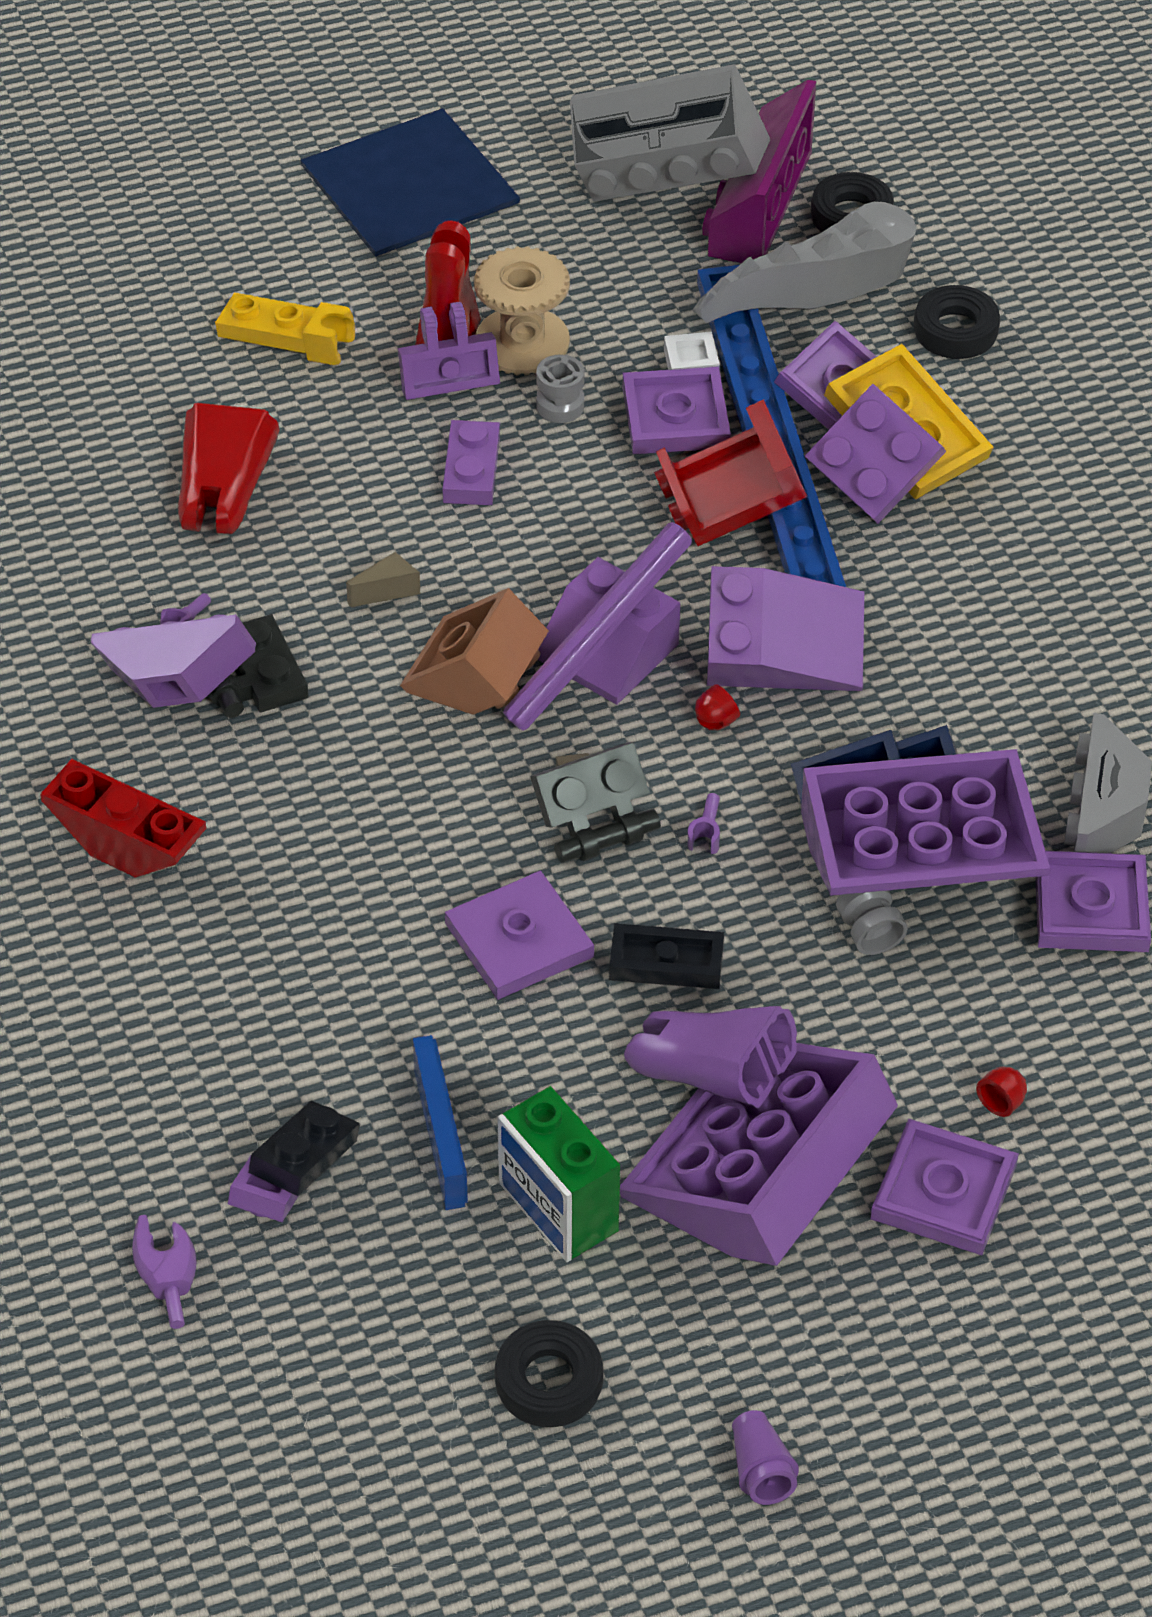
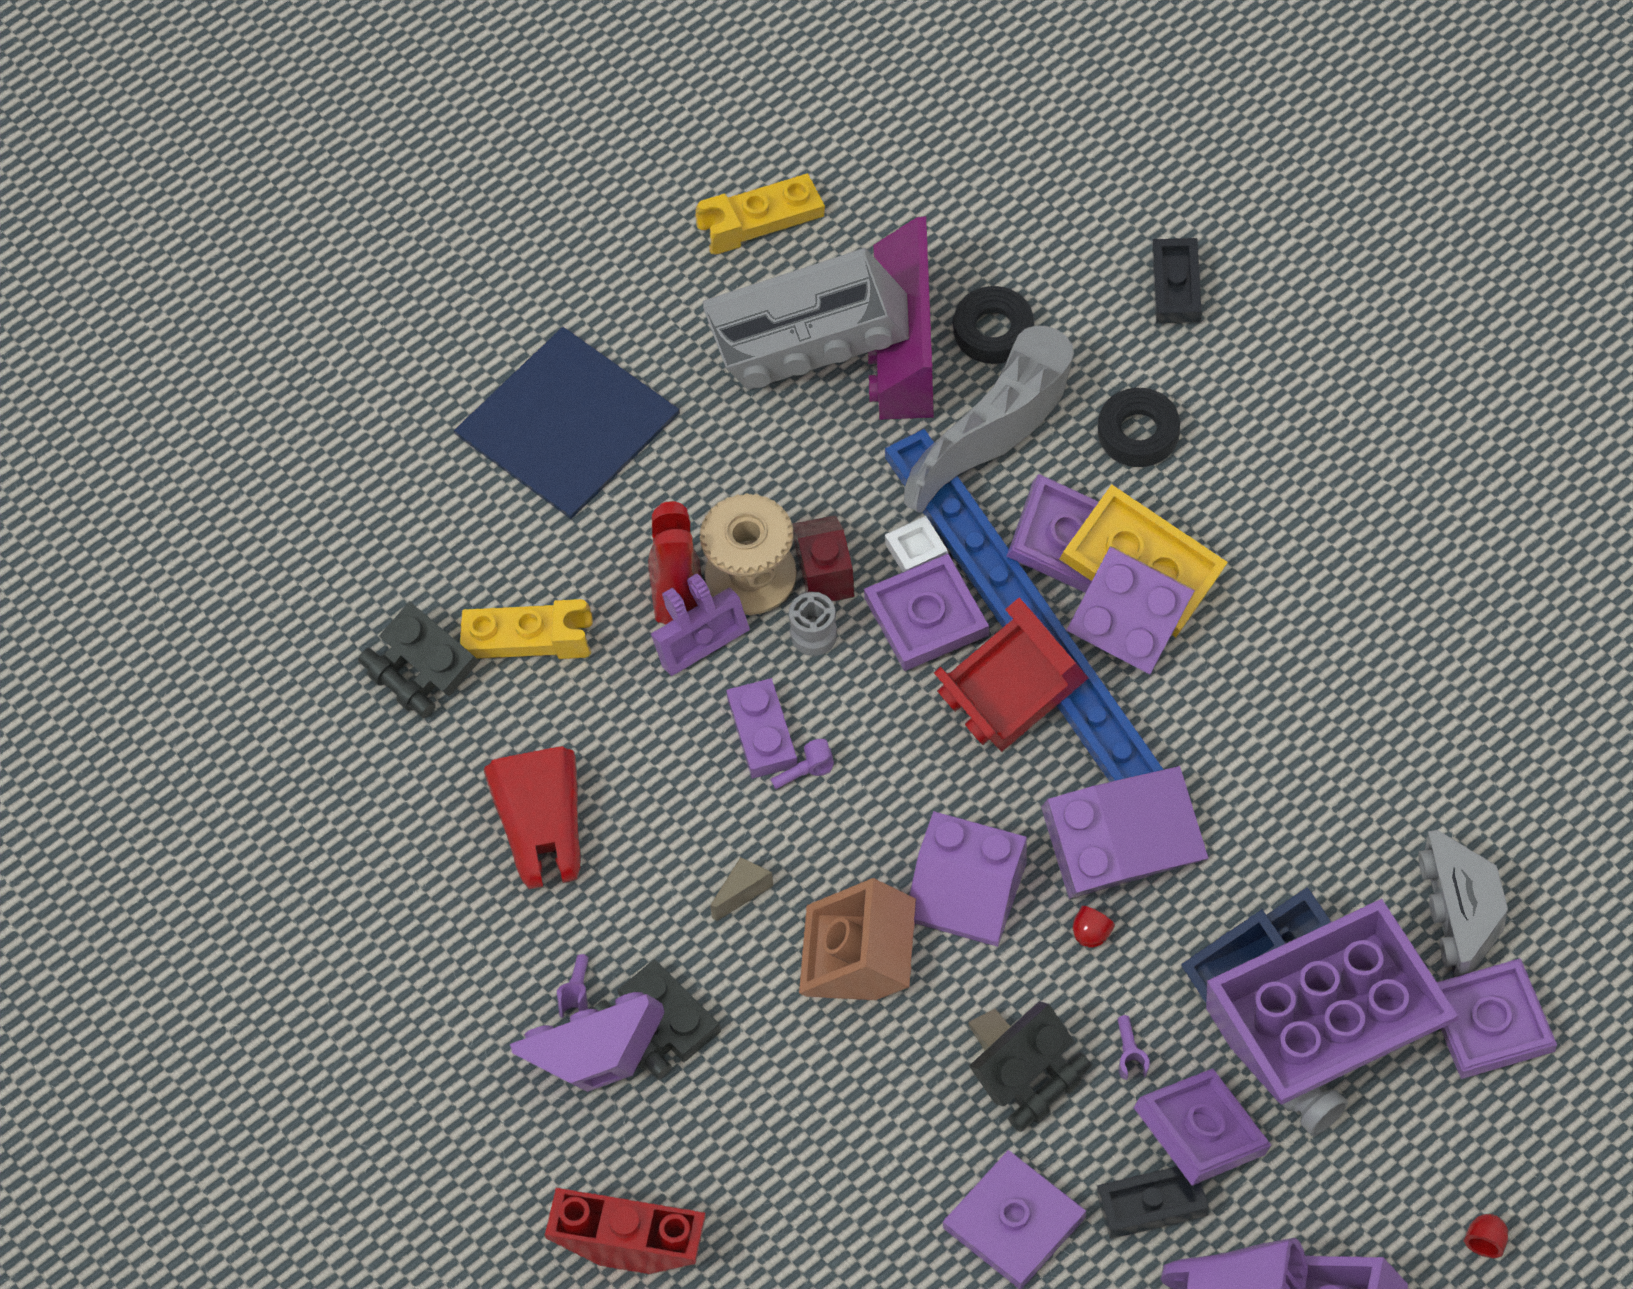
camera: 15 degrees left, 10 degrees up
(184, 310) = (428, 649): none -> pearl dark grey plate
(511, 503) = (818, 763): none -> medium lavender hand
(597, 342) = (824, 557): none -> dark red slope
(597, 626) = (965, 888): medium lavender axle -> none
(637, 63) = (758, 212): none -> yellow plate
(746, 904) = (1202, 1126): none -> medium lavender plate
(1047, 216) = (1176, 280): none -> black plate

